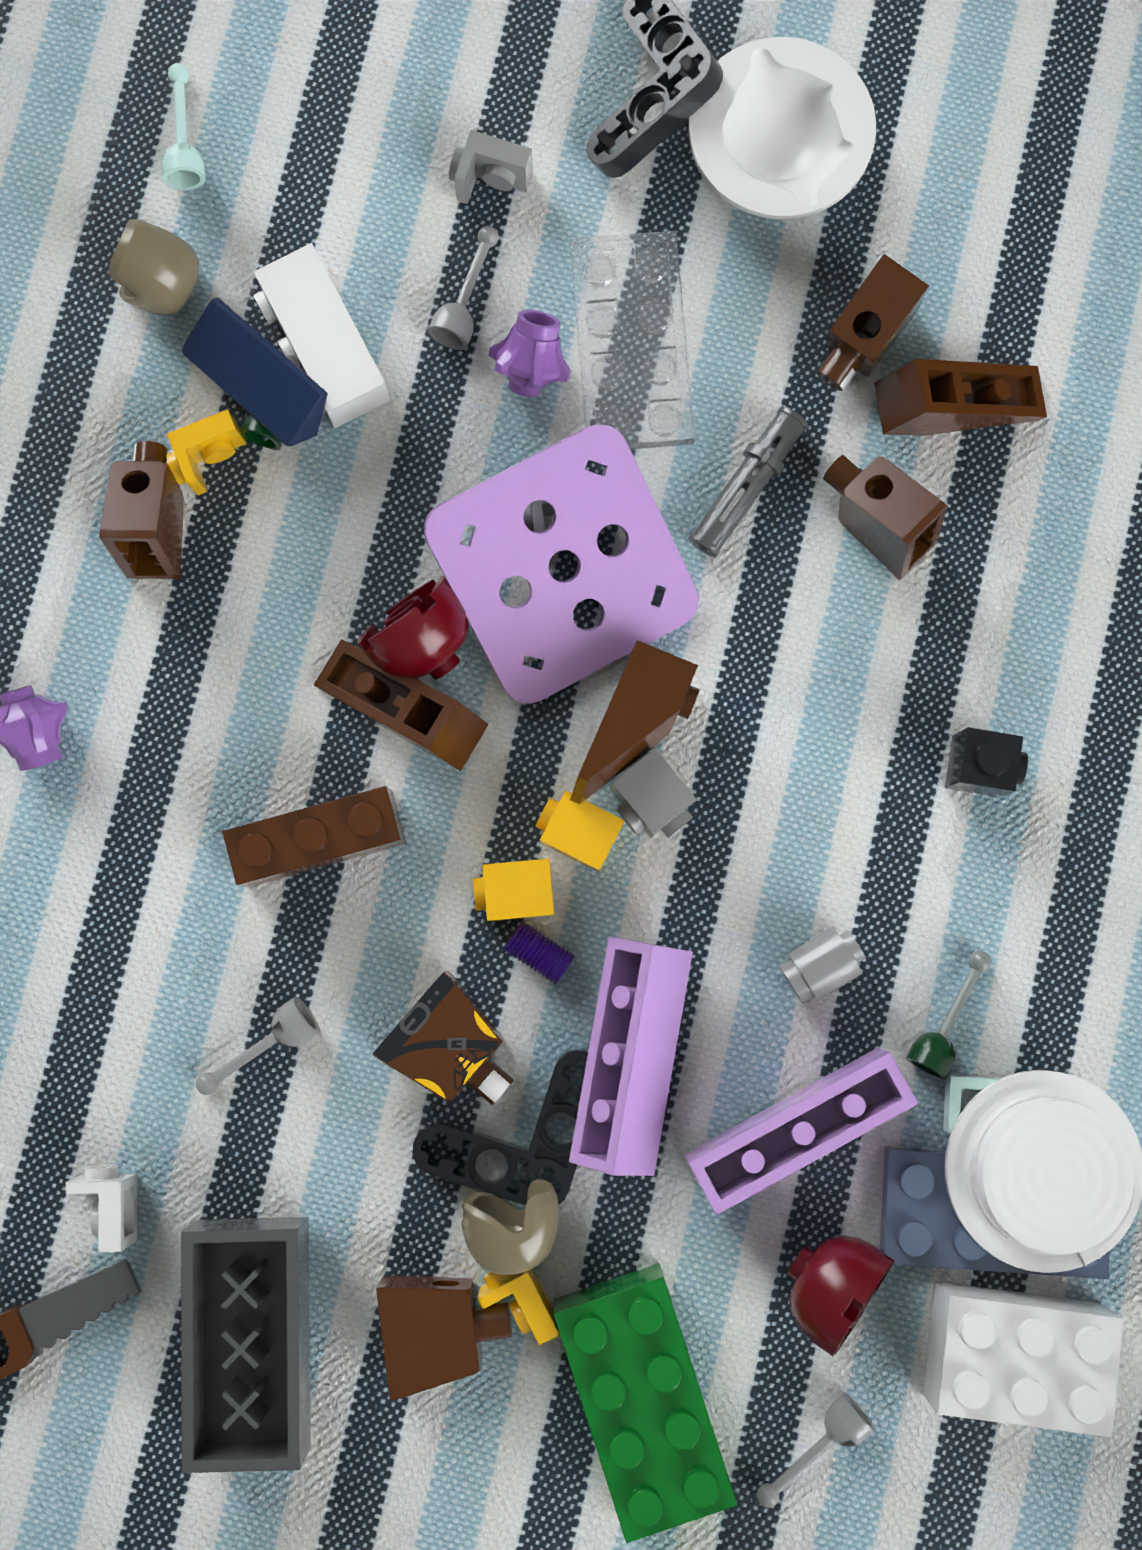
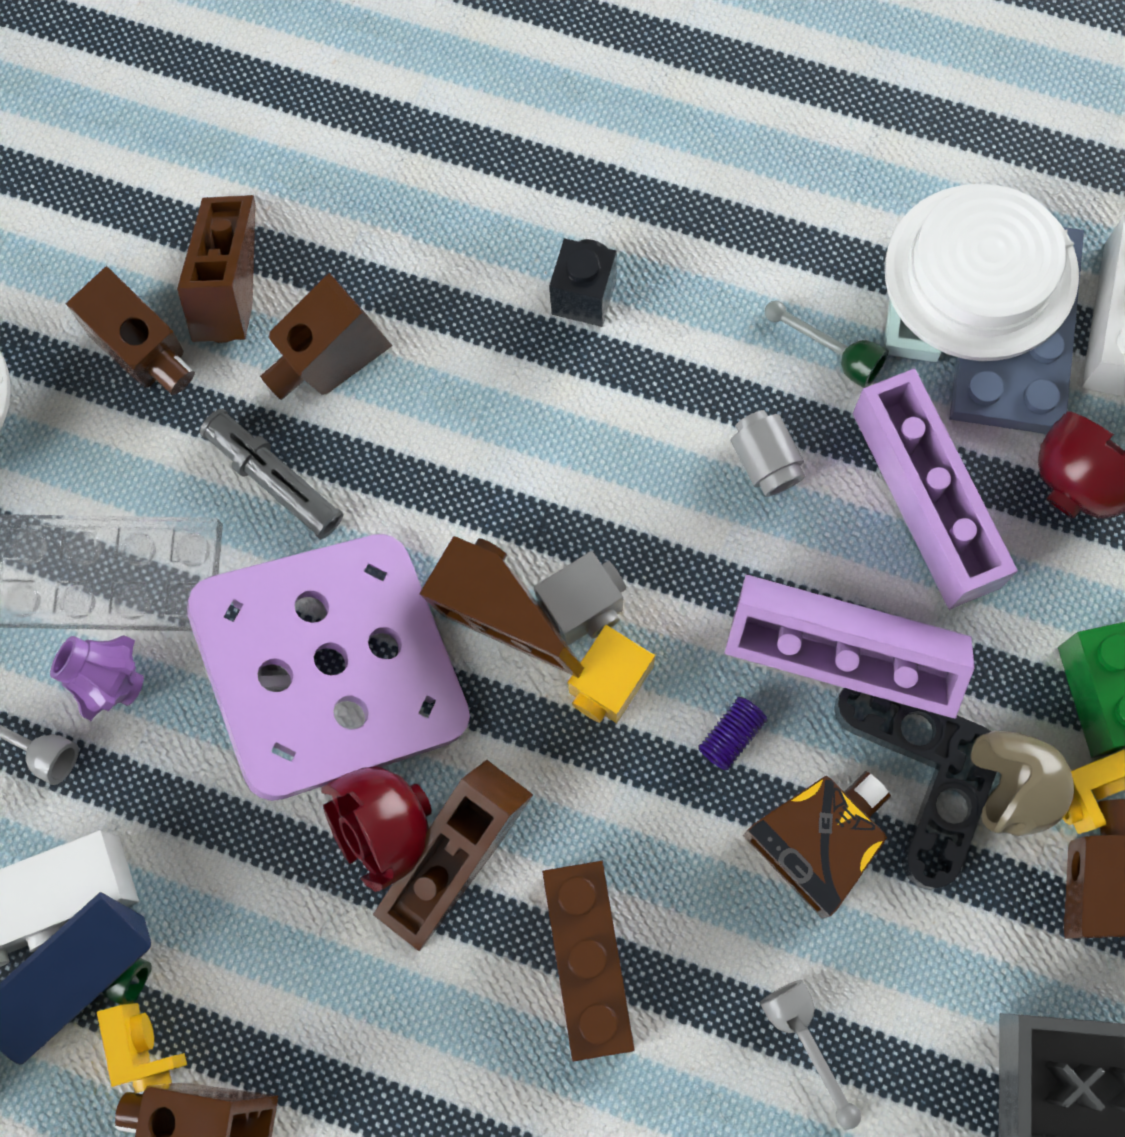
camera: 75 degrees left, 10 degrees down
(515, 890) = (666, 748): yellow brick -> none

